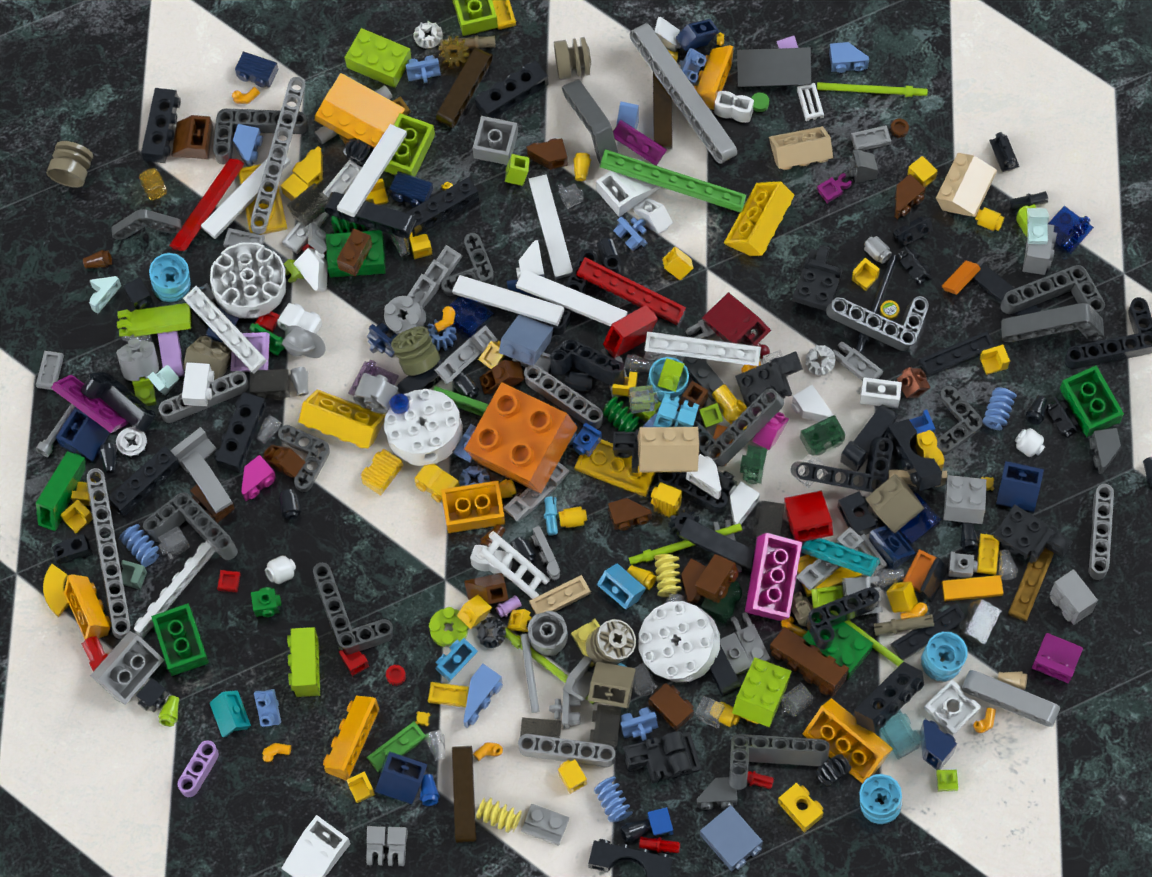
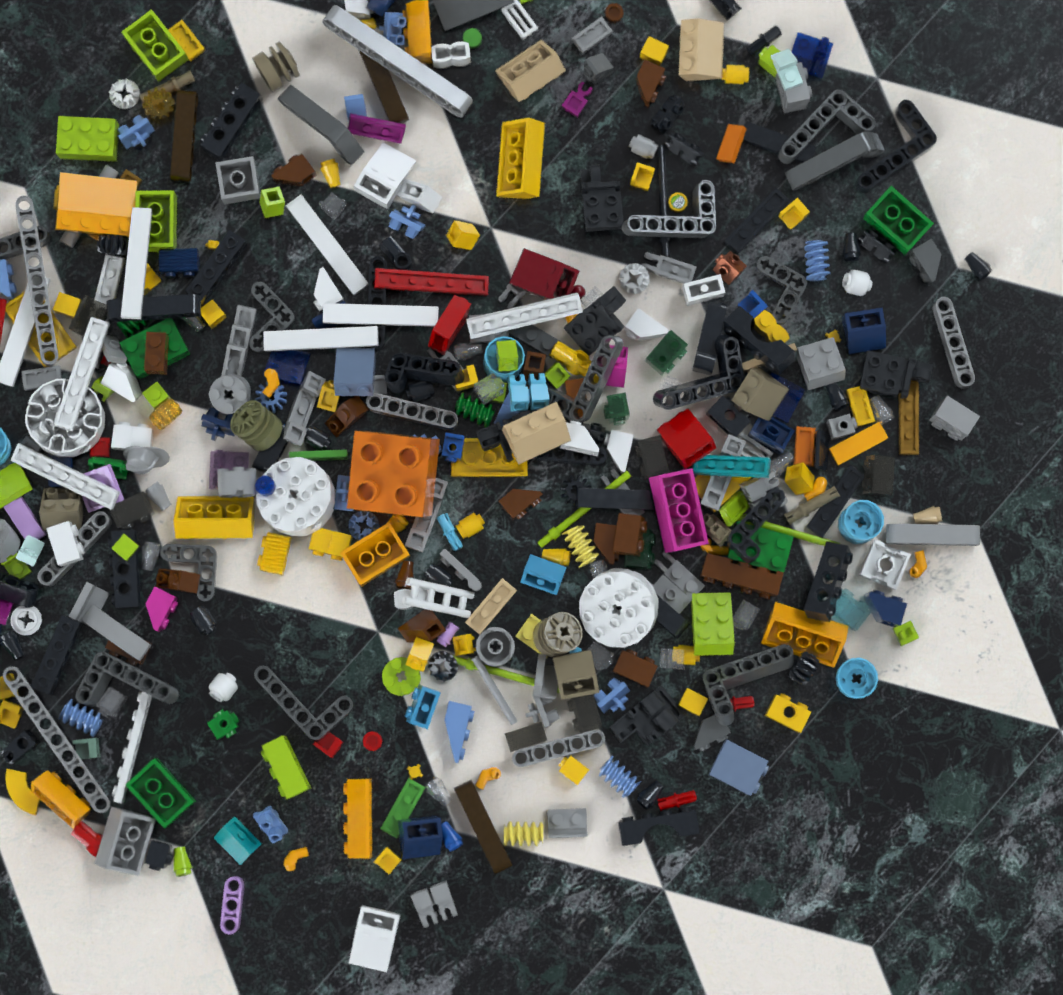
camera: 30 degrees left, 15 degrees up
(228, 581) = (179, 716): red tile -> none
(249, 409) = (125, 547): none -> lime tile
(280, 246) = (81, 374): none -> white tile
(311, 168) = (73, 279): yellow slope -> none
(338, 294) = (156, 395): none -> lime brick
(339, 311) = (165, 414): none -> clear yellow gear
(448, 694) = (429, 740): yellow plate -> none
(660, 822) = (670, 780): blue panel -> none
(666, 499) = (550, 475): yellow brick -> none
(673, 181) = (424, 155): bright green tile -> none
(712, 759) = (692, 702): none -> yellow panel
(1057, 658) = (959, 479): magenta bracket -> none

